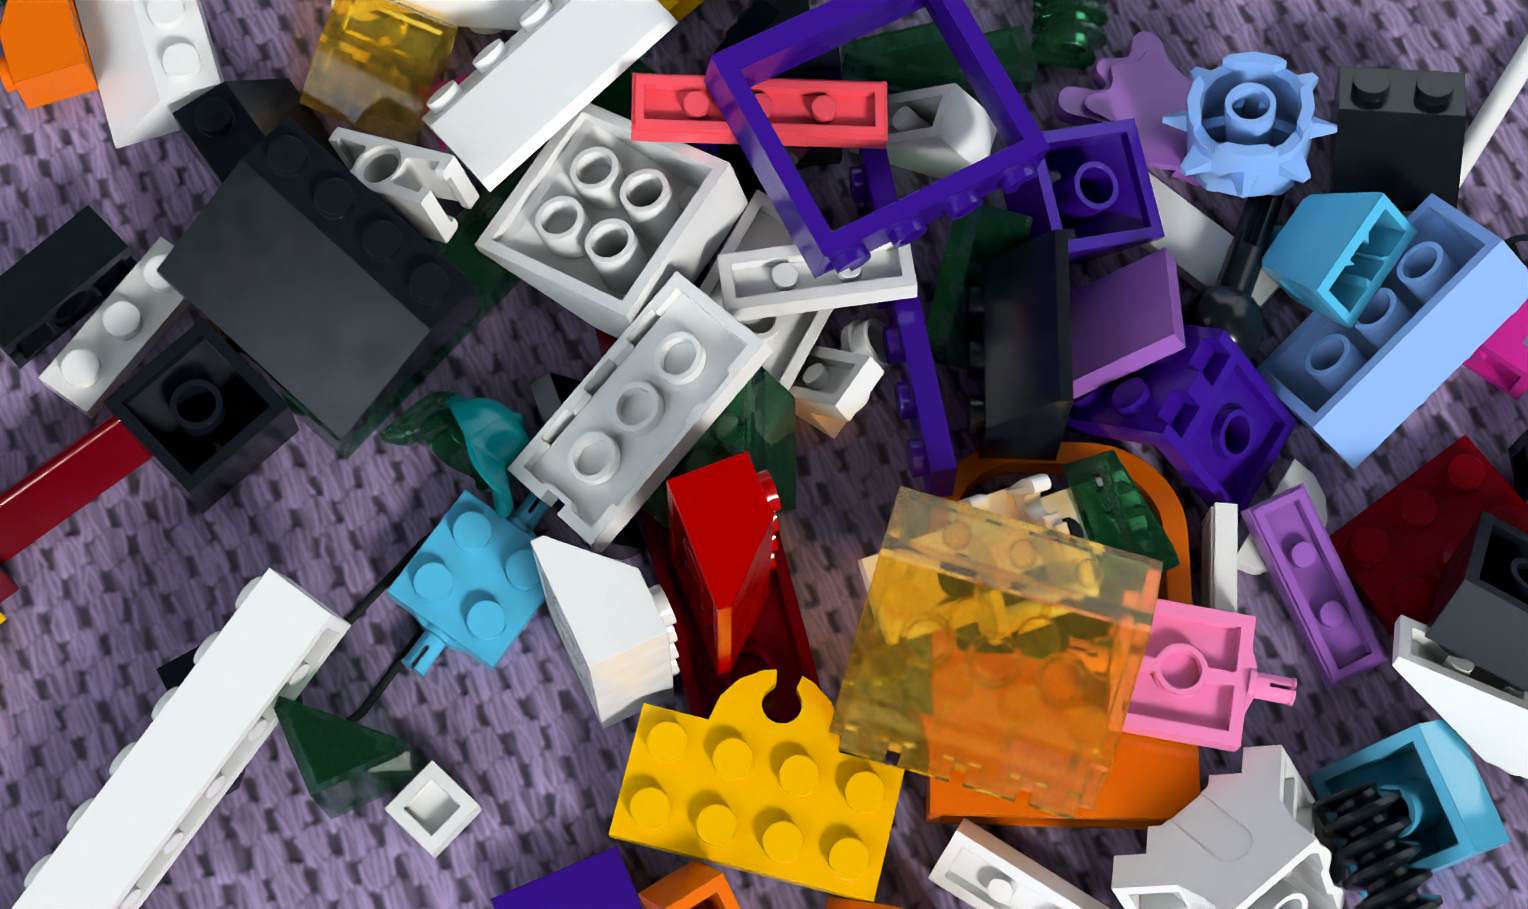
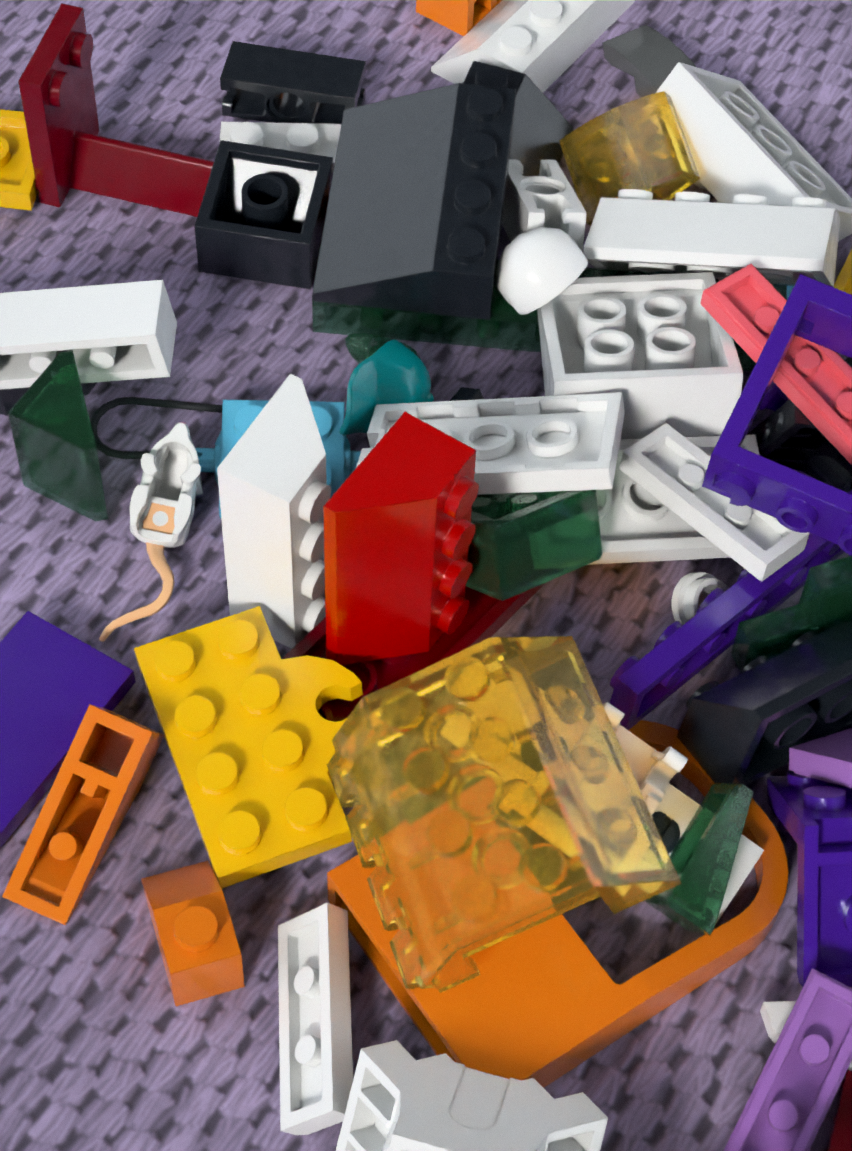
camera: 55 degrees right, 15 degrees down
(433, 809) = (75, 537): white plate -> none
(470, 717) = (163, 510): none -> white animal
(483, 235) = (538, 268): none -> white hair
(833, 387) = (639, 597): white slope -> none
(1200, 678) = (608, 994): bright pink plate -> none
(1219, 557) = (738, 993): white tile -> none

